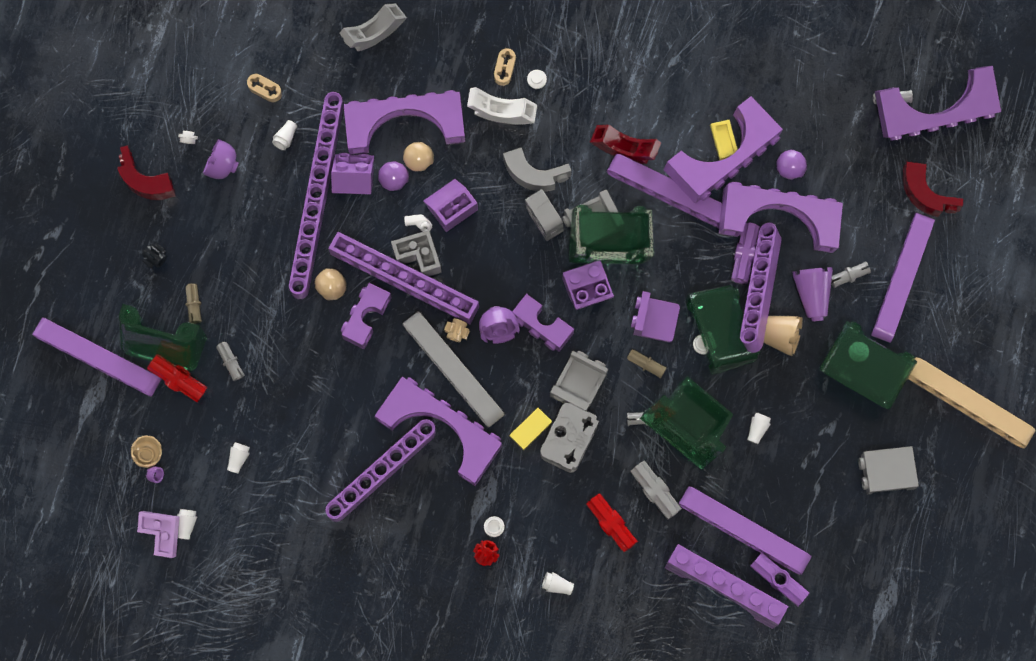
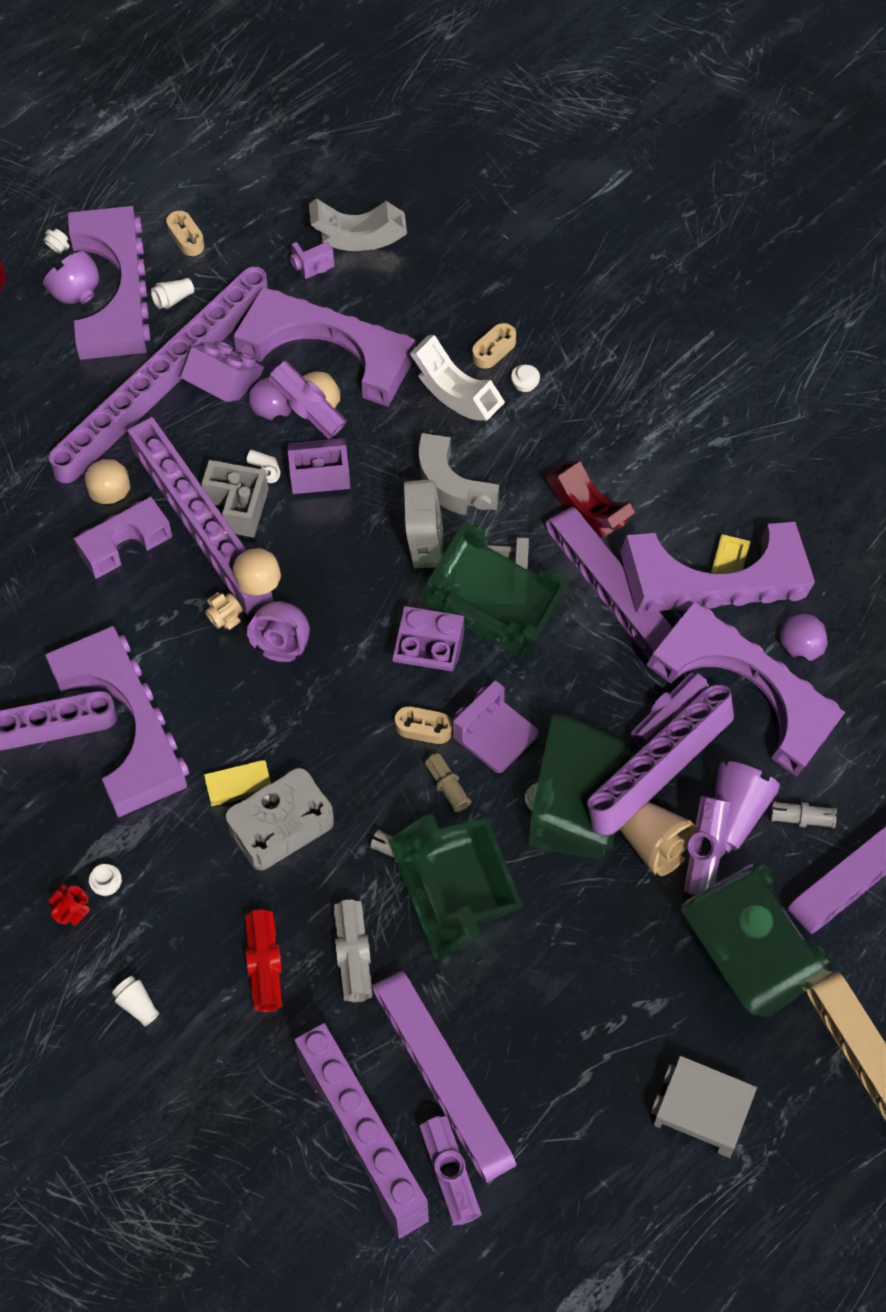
camera: 30 degrees right, 15 degrees down
(223, 115) = (120, 325): none -> medium lavender arch
(361, 65) = (313, 260): none -> medium lavender bracket
(421, 168) = (307, 399): none -> medium lavender piece
(453, 369) = (187, 658): light grey beam -> none
(467, 299) = (256, 571): none -> tan hair
(554, 335) = (348, 681): medium lavender arch -> none
(579, 381) = (342, 757): light grey panel -> none
(611, 331) = (423, 725): none -> tan beam
(758, 427) = (549, 945): white cone -> none
(815, 336) = (711, 825): none -> medium lavender piece

